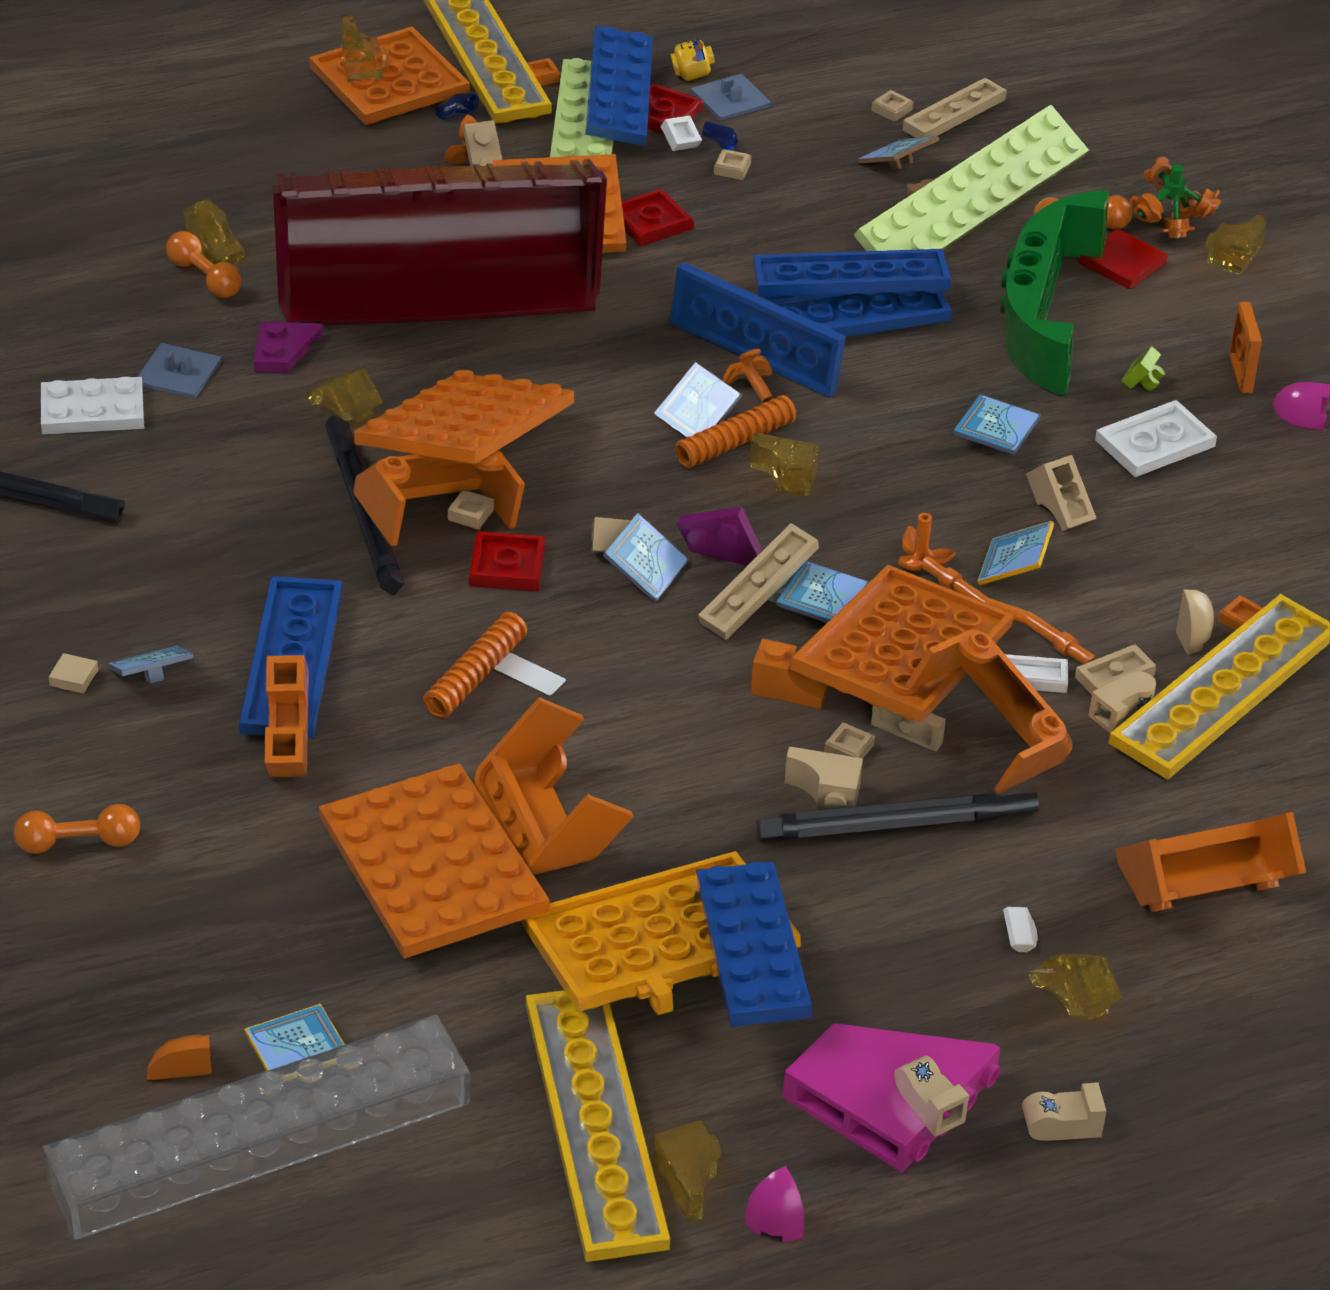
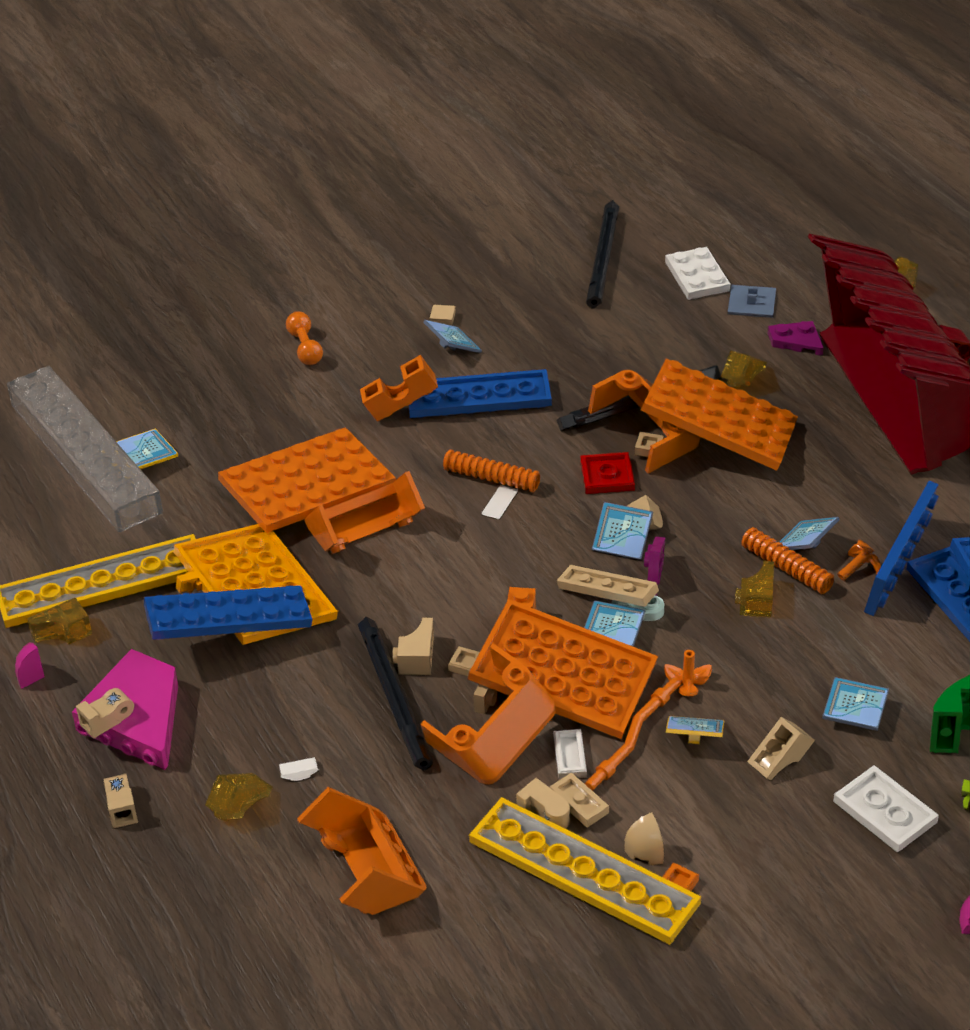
camera: 85 degrees right, 0 degrees up
(181, 1058) = (138, 413): orange brick -> none

